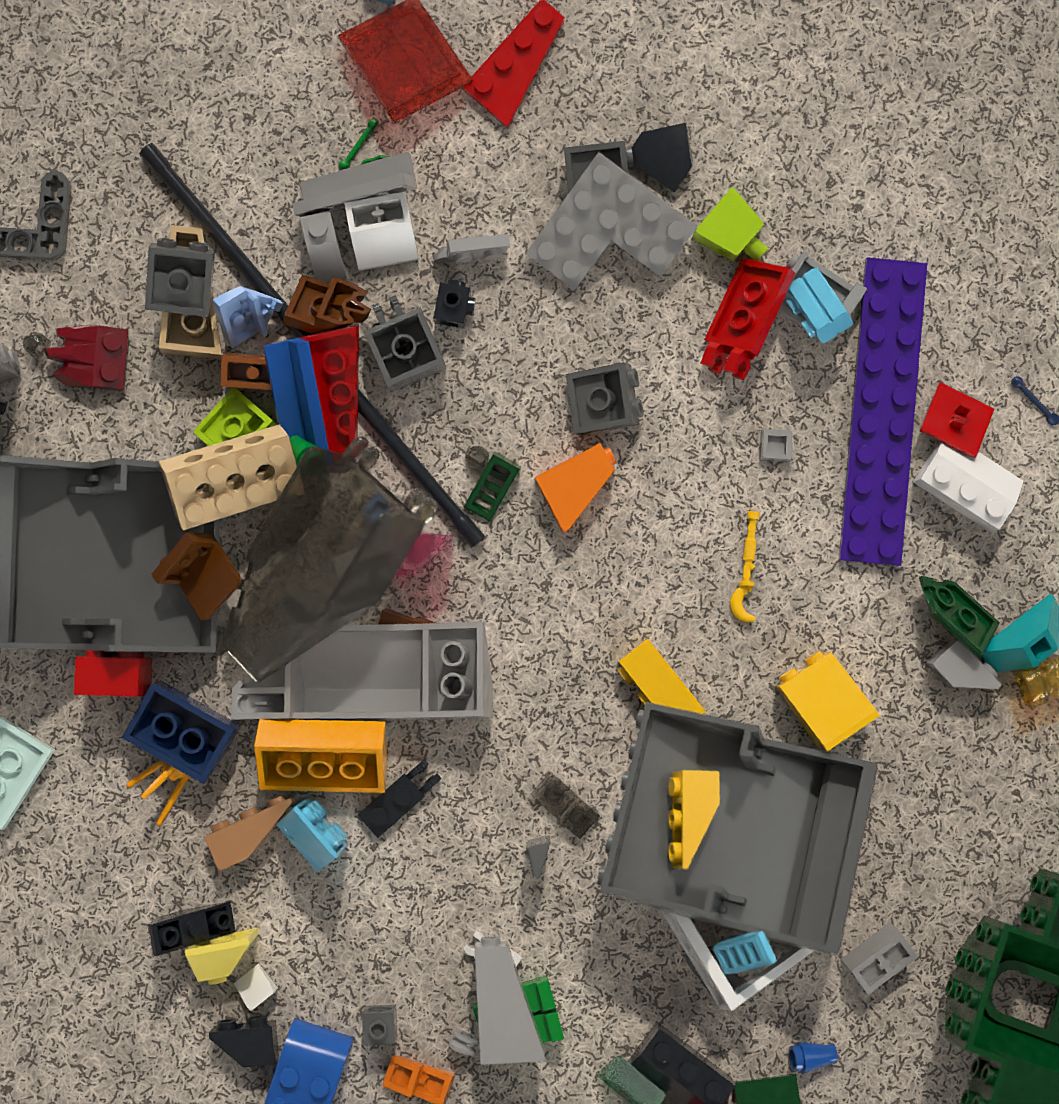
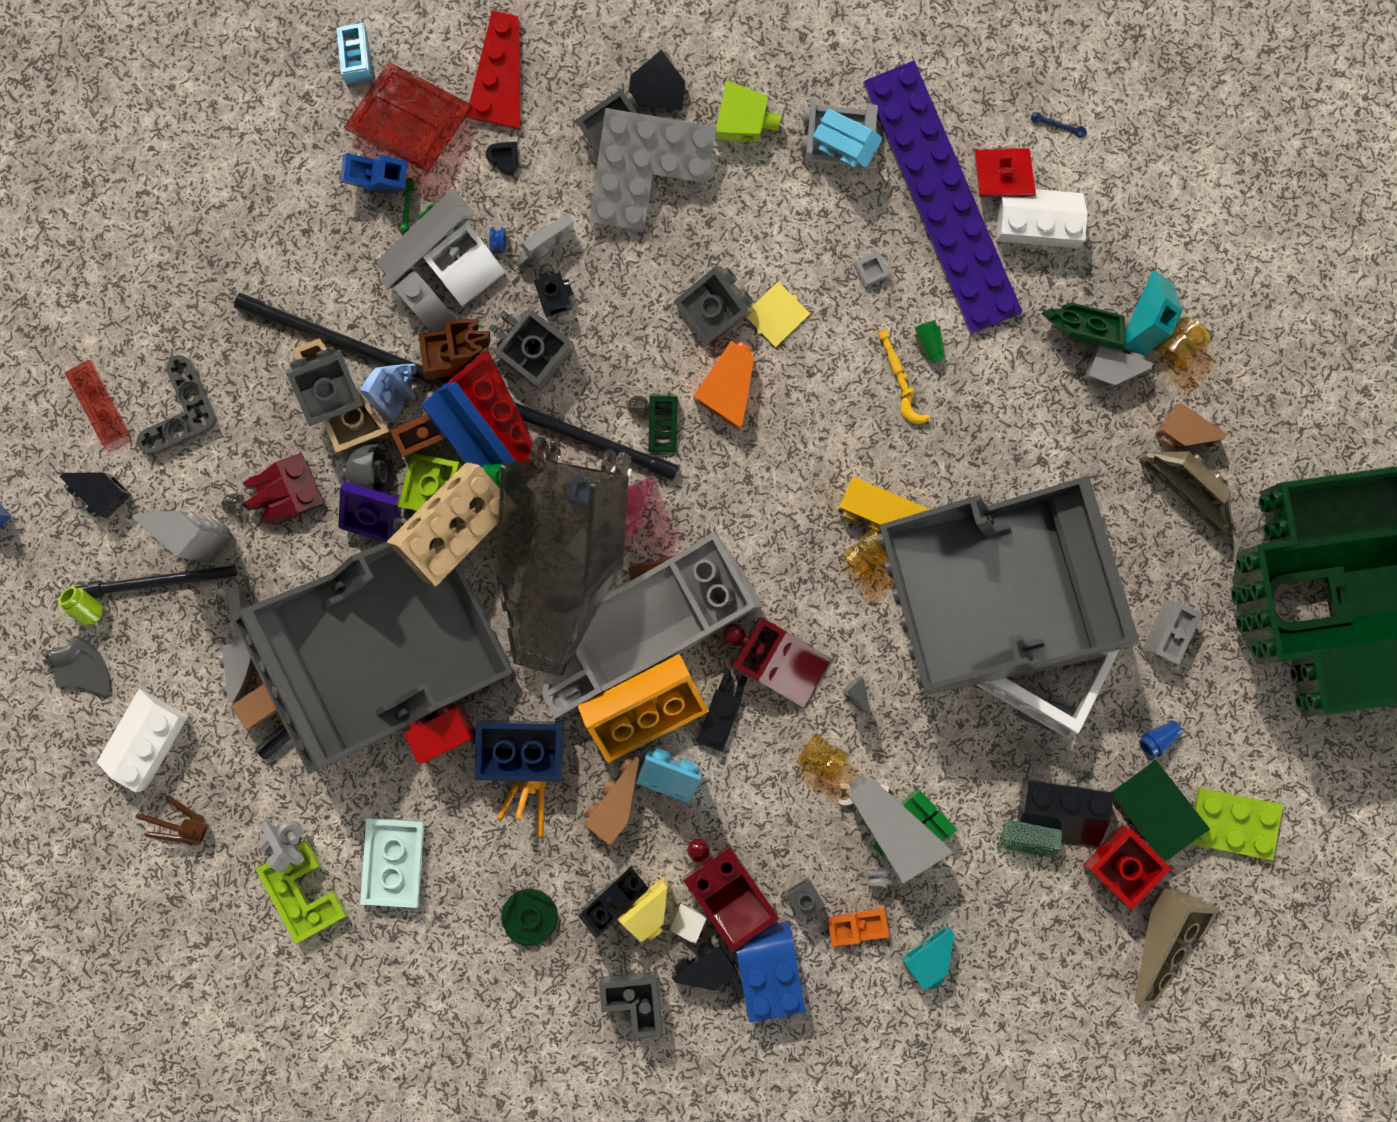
camera: 25 degrees left, 0 degrees up
(112, 889) = (537, 913): none -> dark green tile
(159, 422) = (368, 512): none -> dark purple plate
(167, 1030) = (635, 993): none -> dark grey brick
(182, 384) = (369, 468): none -> dark grey cylinder
(200, 571) = (467, 614): reddish brown bracket -> none
(308, 987) = (731, 898): none -> dark red slope
(342, 98) = (374, 175): none -> blue brick
(427, 223) = (497, 239): none -> blue bush
(470, 897) = (823, 759): none -> clear yellow wheel
(477, 146) = (504, 156): none -> black tile
(481, 781) = (780, 662): none -> dark red slope
(565, 805) = (857, 645): clear smoke slope -> none
(619, 722) = (866, 555): none -> clear yellow wheel
(660, 440) = (777, 314): none -> light yellow piece
(693, 806) = (962, 588): yellow slope -> none
(744, 952) = (1062, 683): medium azure slope -> none
(745, 316) = (792, 178): red tile -> none
(796, 545) = (930, 340): none -> green cone
(826, 700) = (1020, 449): yellow slope -> none
(979, 827) = (1195, 485): none -> dark tan wedge
(1001, 766) = (1187, 429): none -> medium nougat slope

